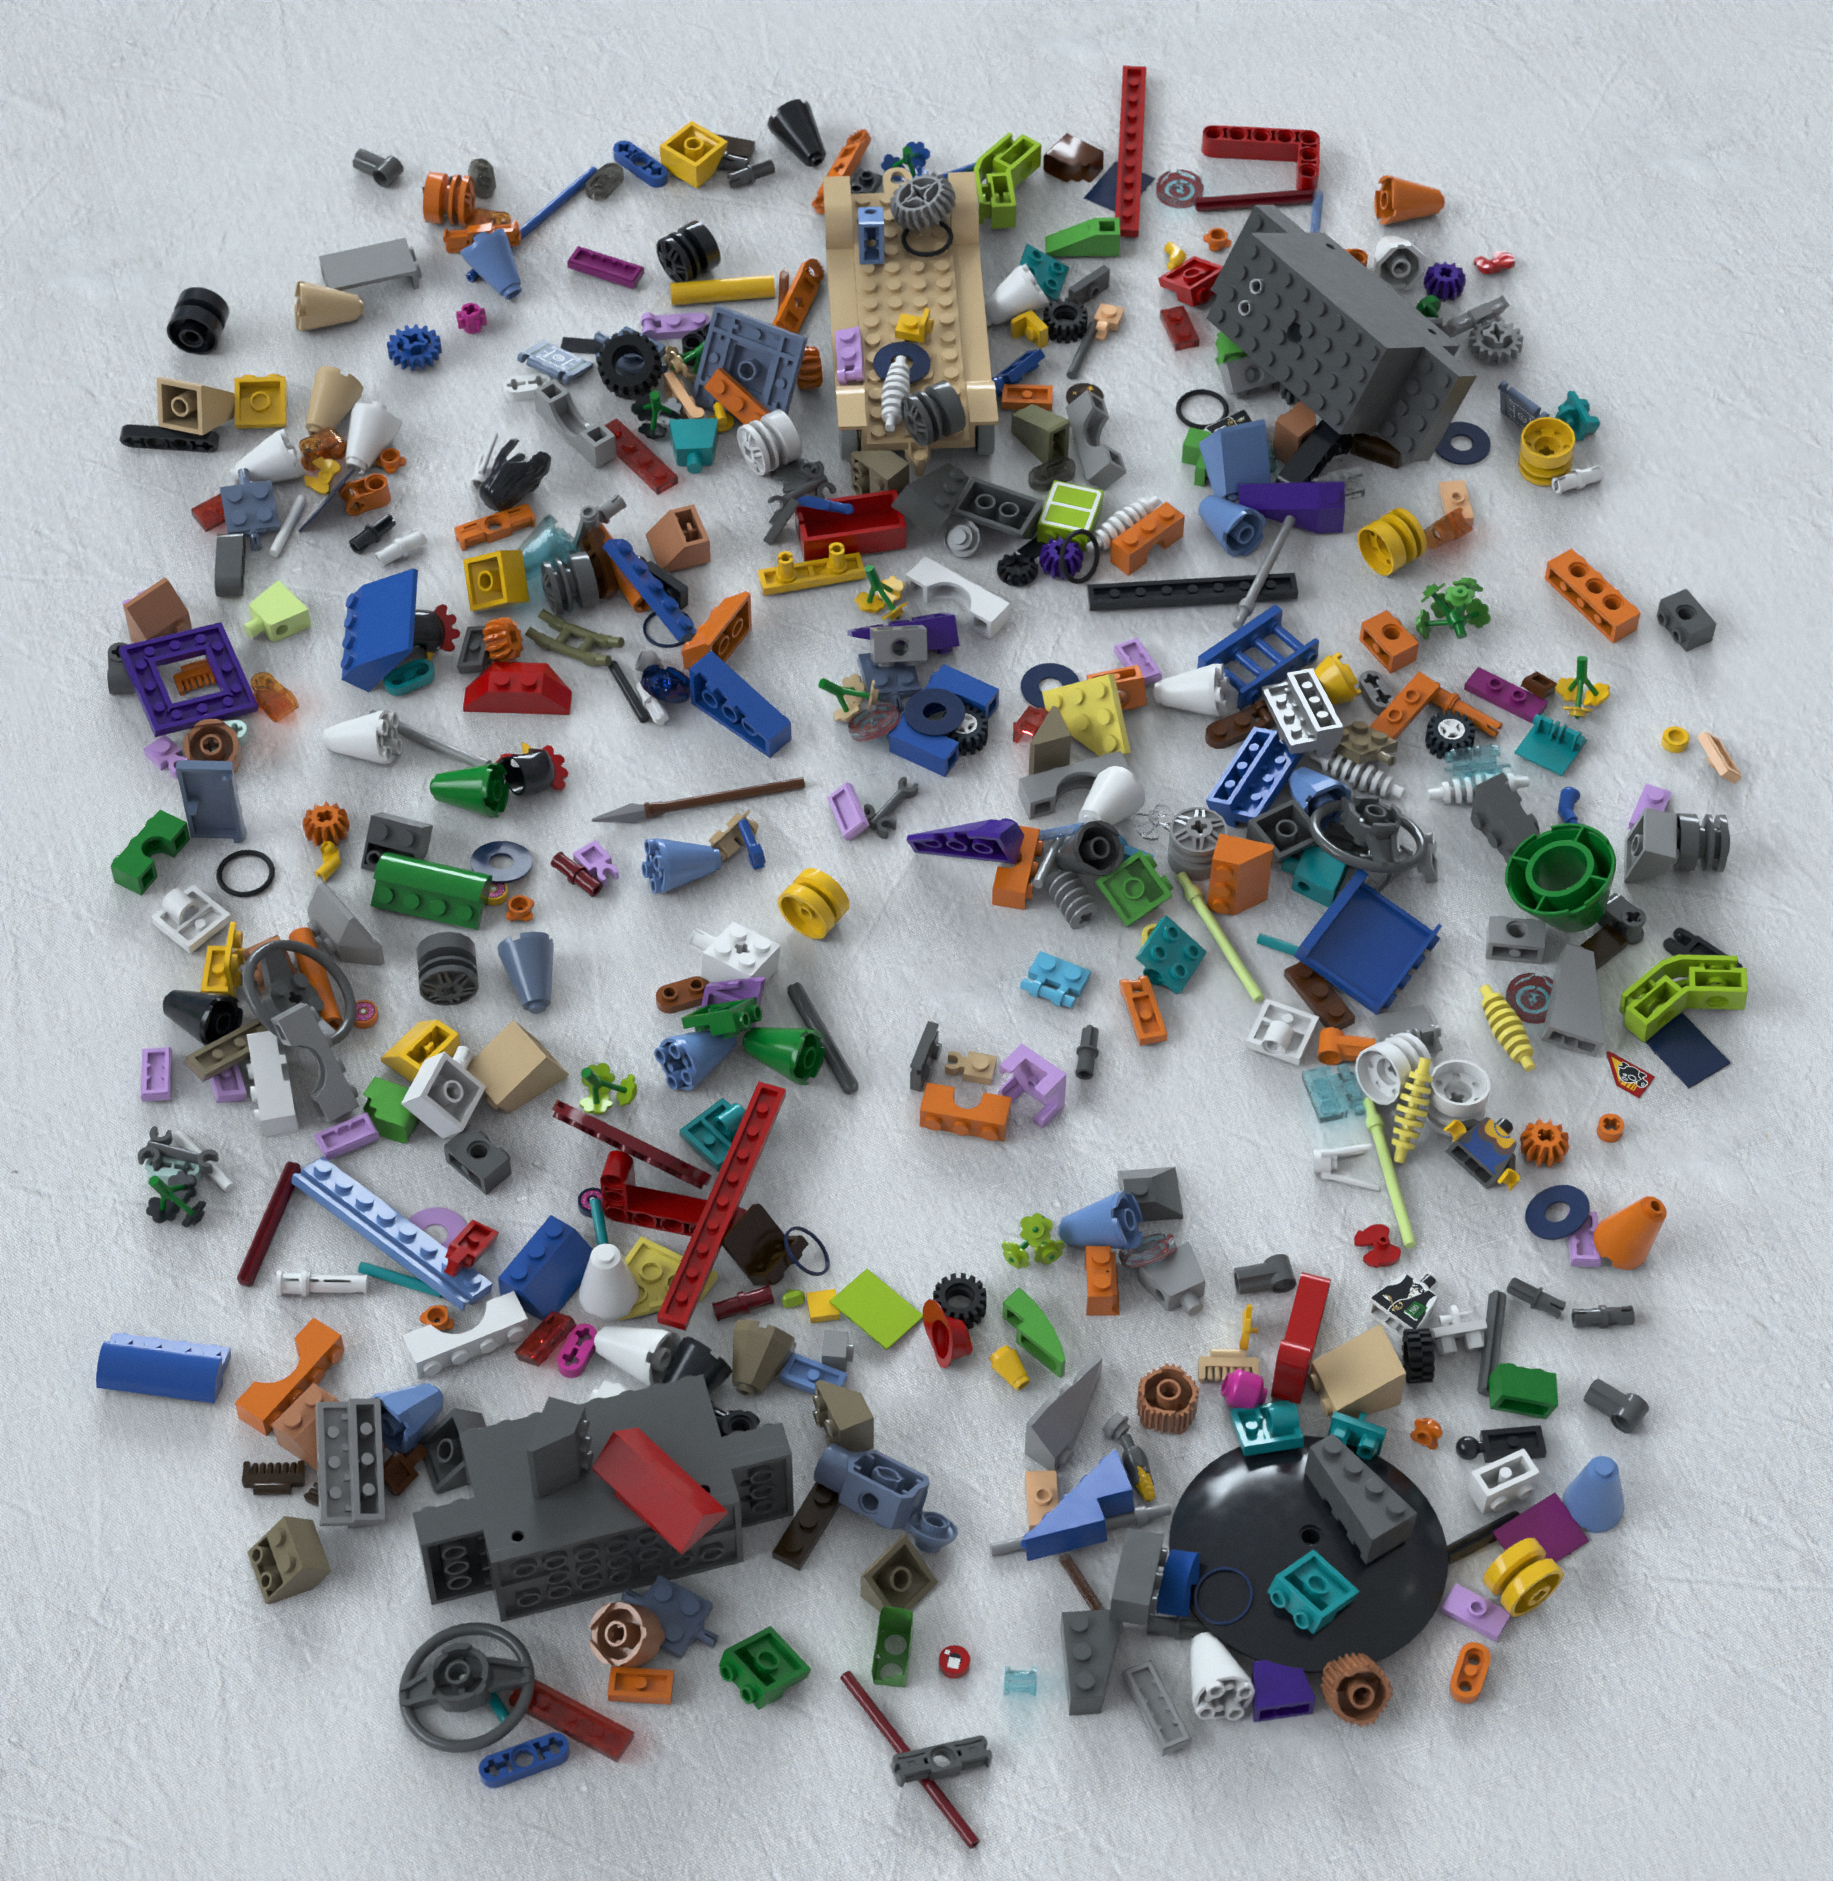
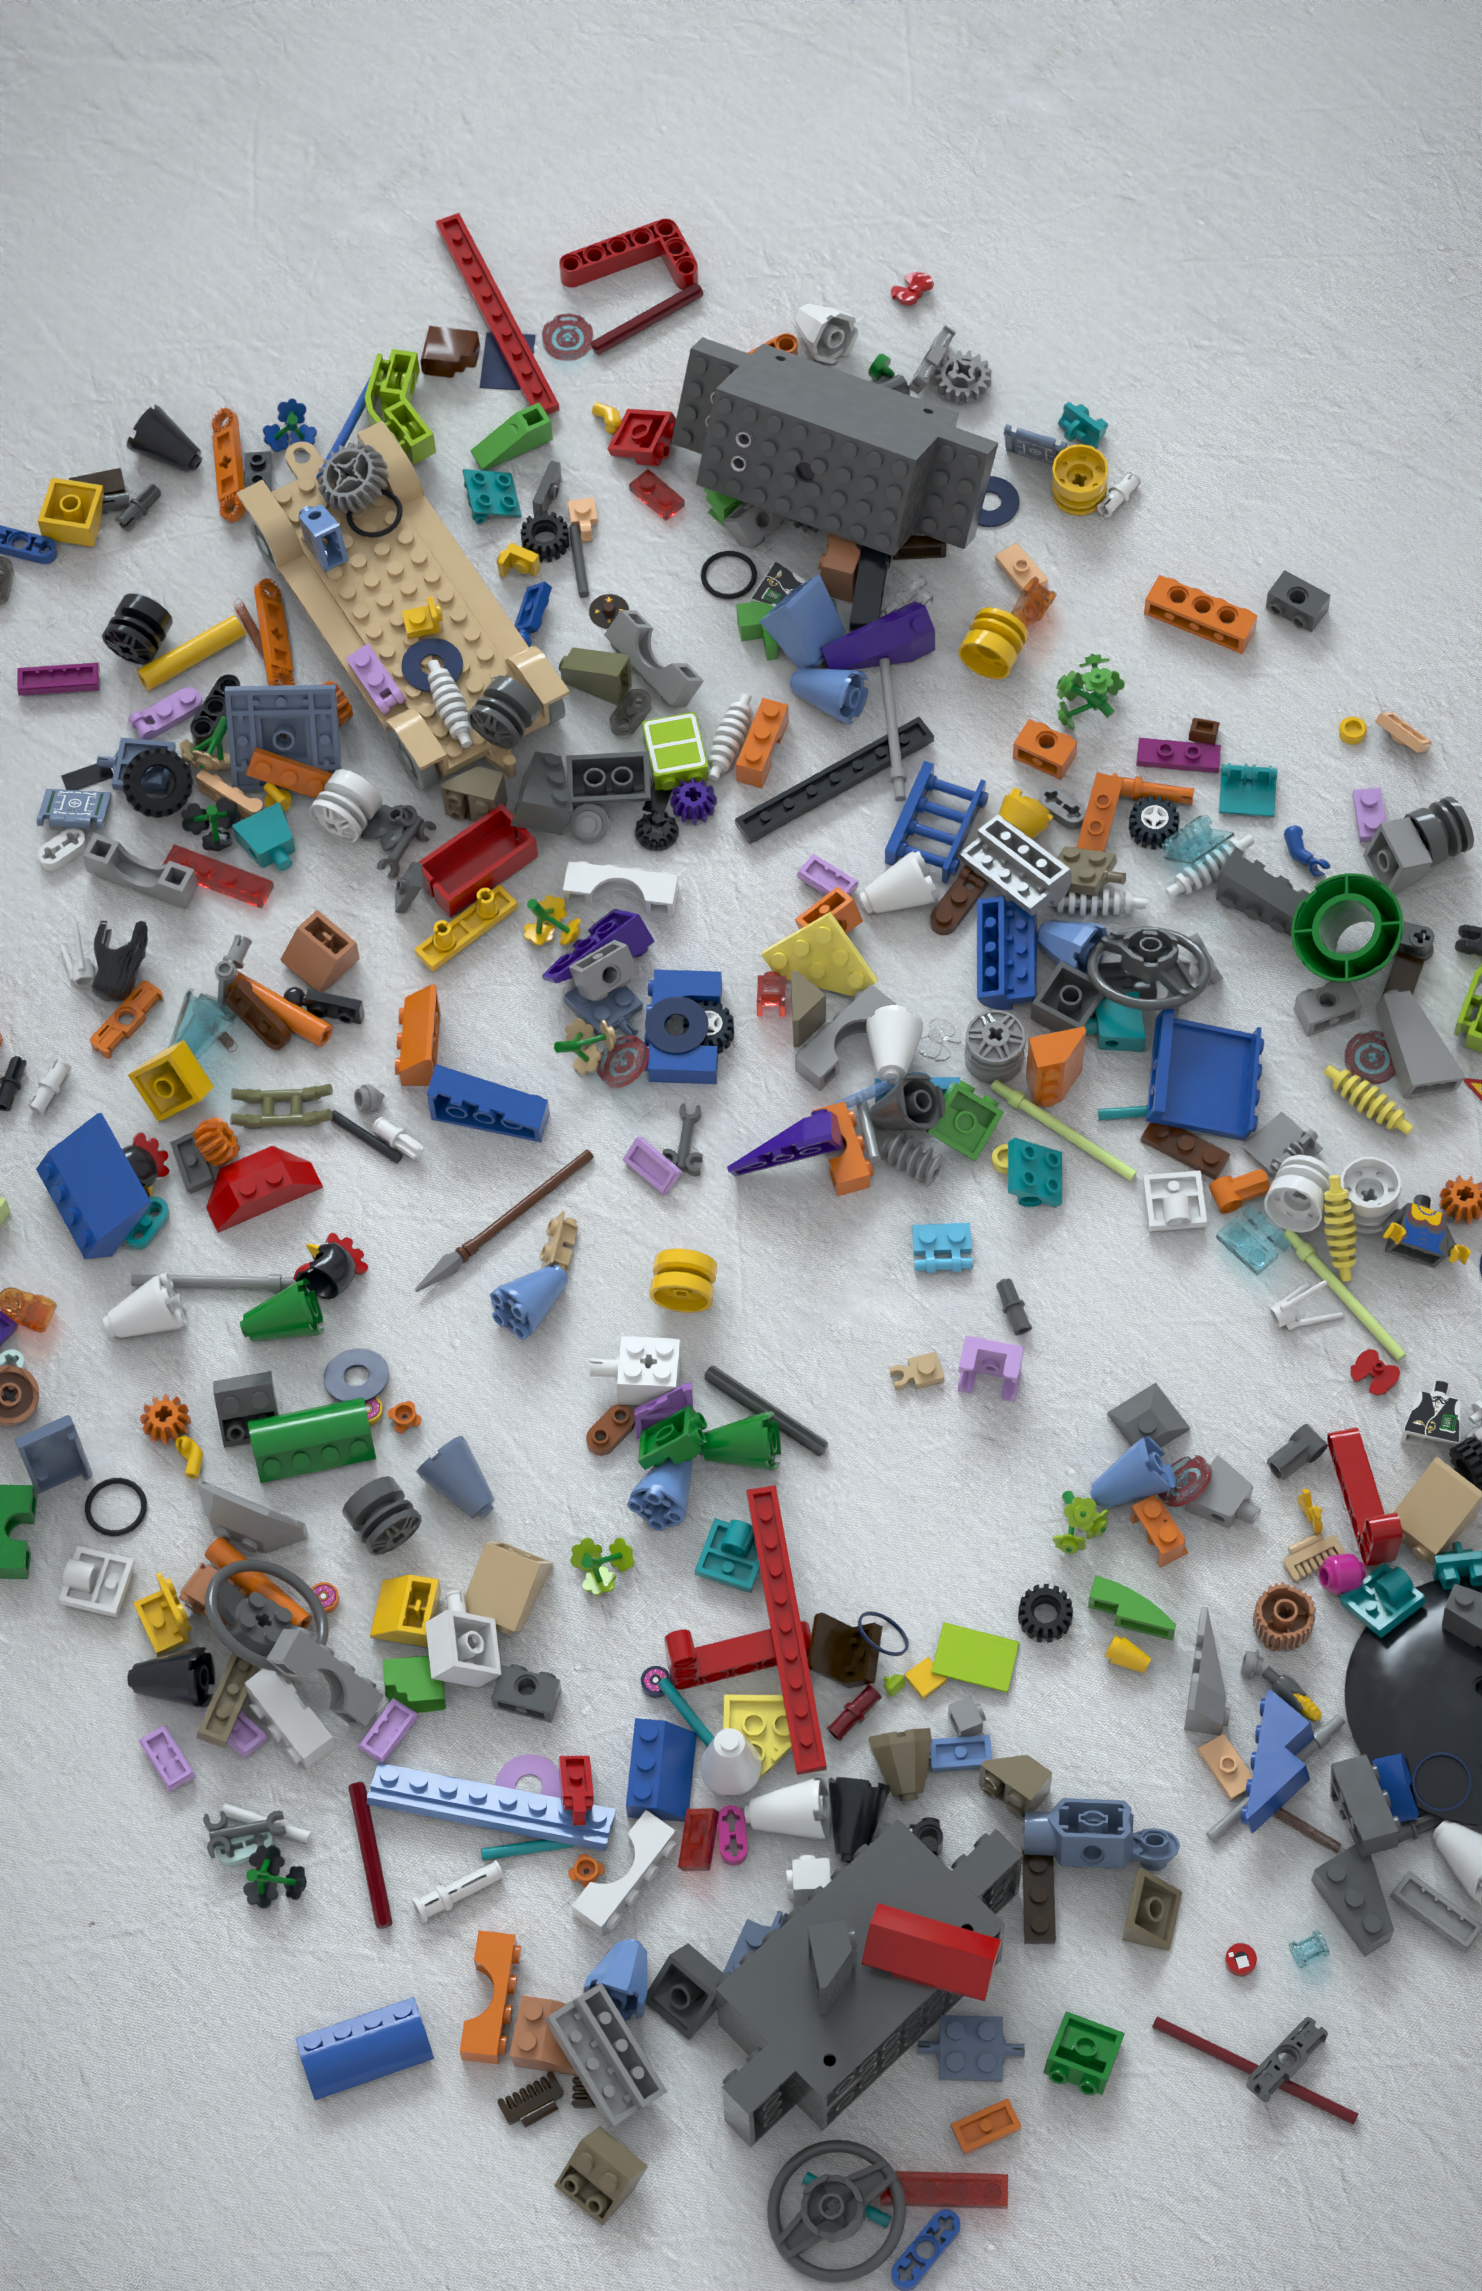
camera: 25 degrees left, 10 degrees up
(400, 1469) = (647, 2033): reddish brown plate -> none
(571, 582) = (245, 1050): dark grey wheel -> none
(576, 874) = (436, 1354): dark red pin -> none
(596, 861) = (446, 1331): lavender plate -> none
(625, 1634) = (934, 2094): nougat brick -> none
(630, 1145) = (677, 1611): dark red plate -> none
(650, 589) = (328, 1020): blue plate -> none
(655, 643) = (367, 1070): dark blue piece -> none
(666, 684) = (401, 1113): clear blue tile -> none
(755, 851) = (593, 1252): blue bar -> none
(823, 504) = (445, 852): blue piece -> none
(892, 1622) = (1187, 1951): bright green piece -> none
(925, 1054) = (873, 1378): dark grey plate -> none
(947, 1335) = (1055, 1653): red piece -> none
(986, 1120) = (920, 1433): orange arch -> none
(1015, 297) = (488, 533): white cone -> none
(1020, 396) = (560, 637): orange plate -> none
(1038, 673) = (743, 928): dark blue gear -> none
(1062, 556) = (726, 793): black tyre -> none
(1143, 1010) = (1039, 1239): orange plate -> none
(1217, 239) = (634, 374): orange plate -> none
(1317, 212) = (718, 309): light blue piece -> none
(1405, 200) = (793, 259): orange cone -> none
(1444, 281) = (879, 331): dark purple gear -> none
(1573, 690) = (1247, 720): yellow plant -> none

